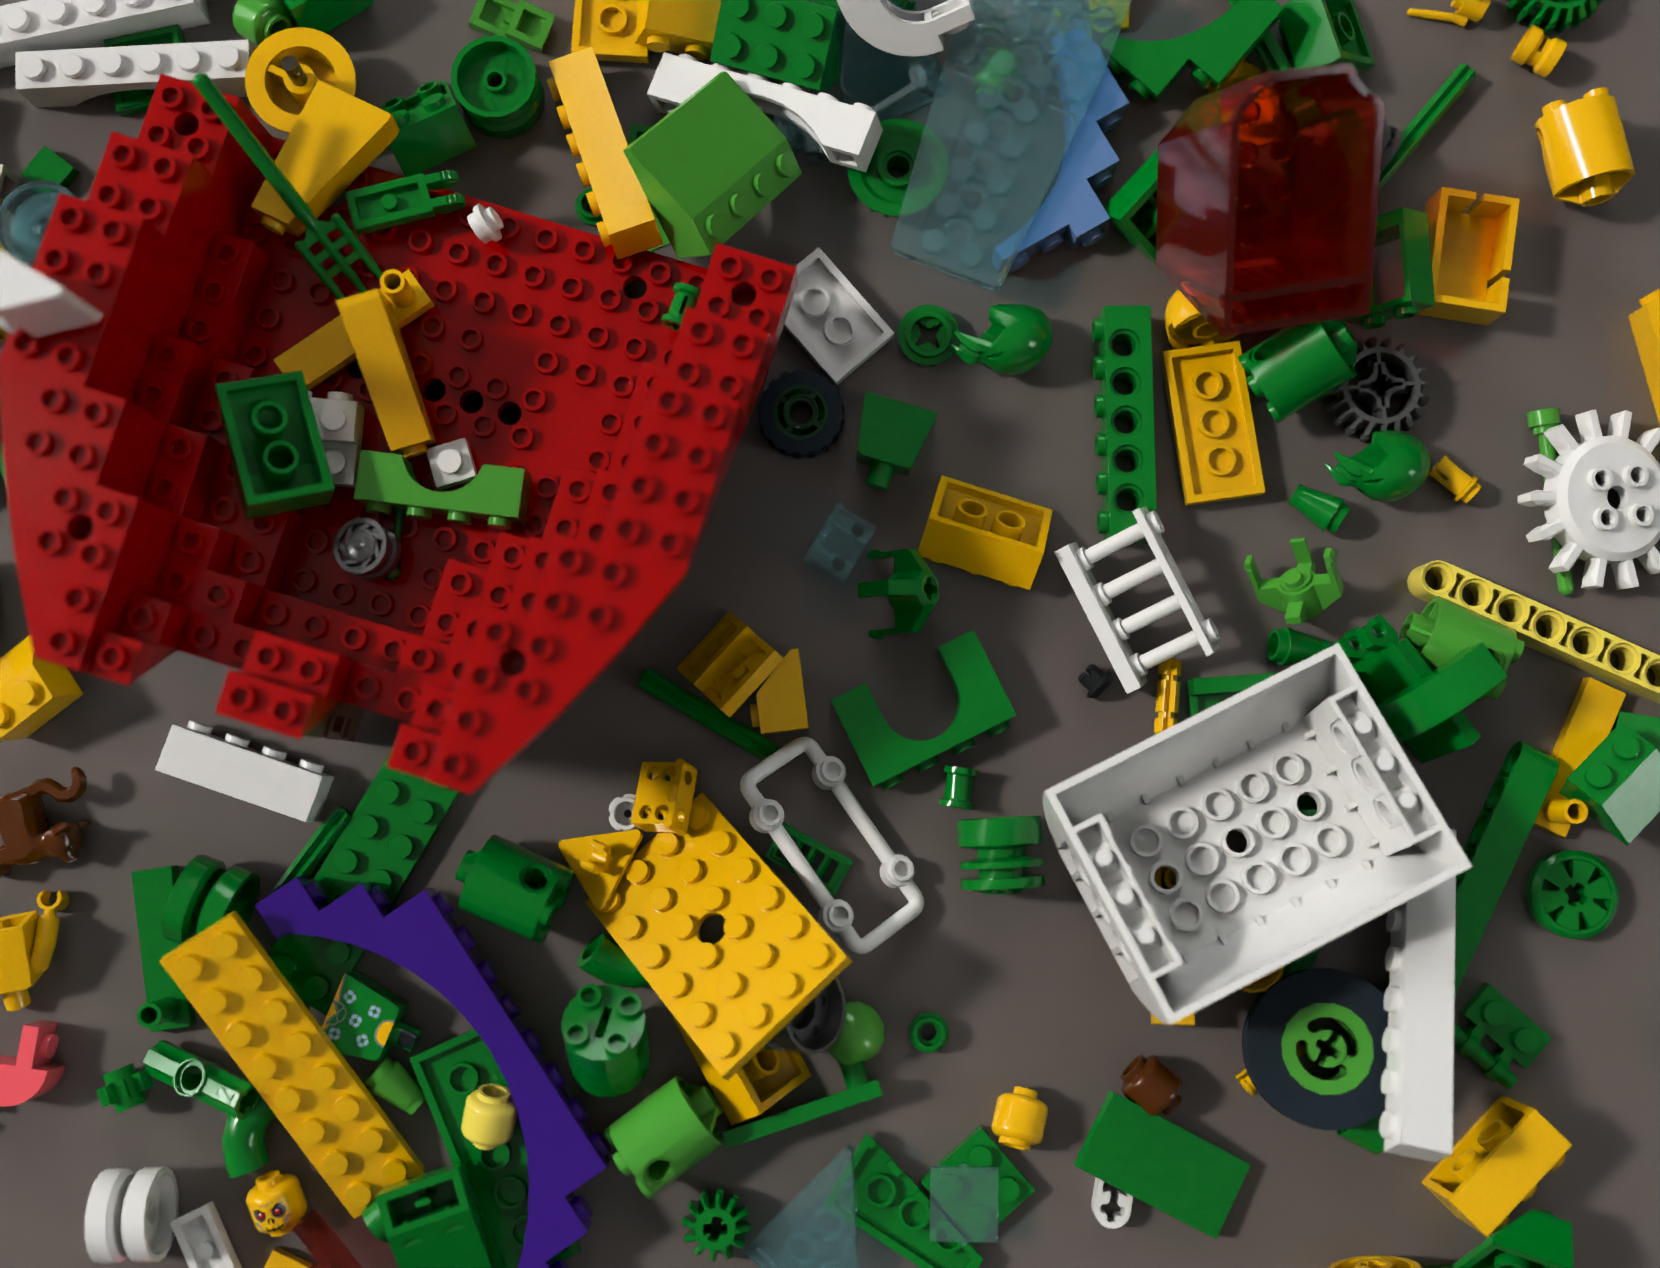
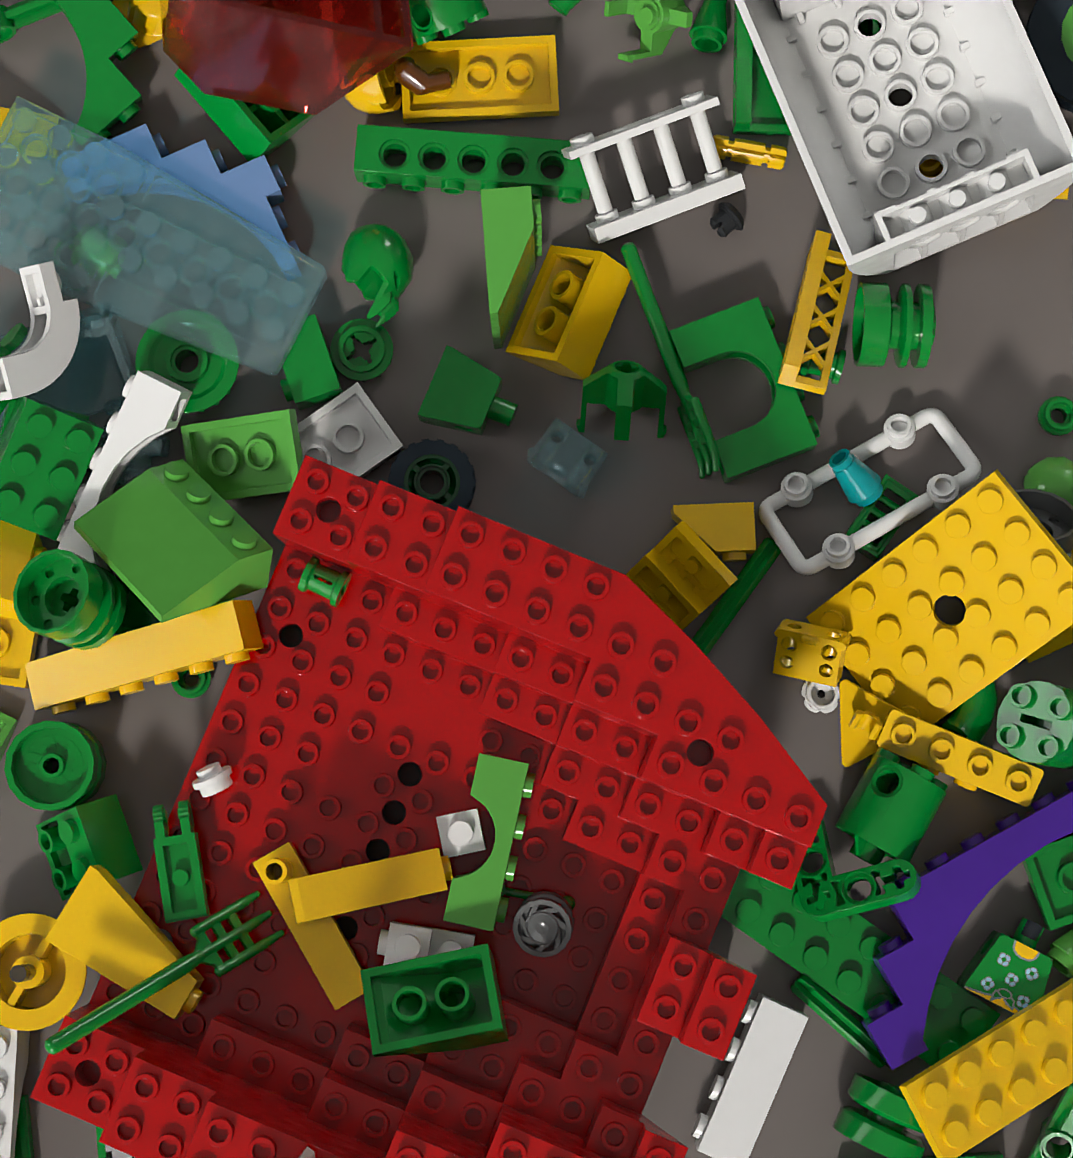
camera: 80 degrees left, 0 degrees up
(433, 838) = (839, 886): none -> green beam
(569, 950) = (959, 757): none -> yellow bracket
(646, 70) = (69, 599): none -> green wheel
(812, 229) = (245, 453): none -> bright green plate
(842, 830) = (856, 478): none -> teal cone
(903, 285) = (309, 368): none -> green slope
(945, 634) = (690, 408): none -> green piece
(993, 760) = (806, 308): none -> yellow fence
(1022, 456) = (511, 244): none -> bright green slope
(1202, 359) = (418, 80): none -> reddish brown arm

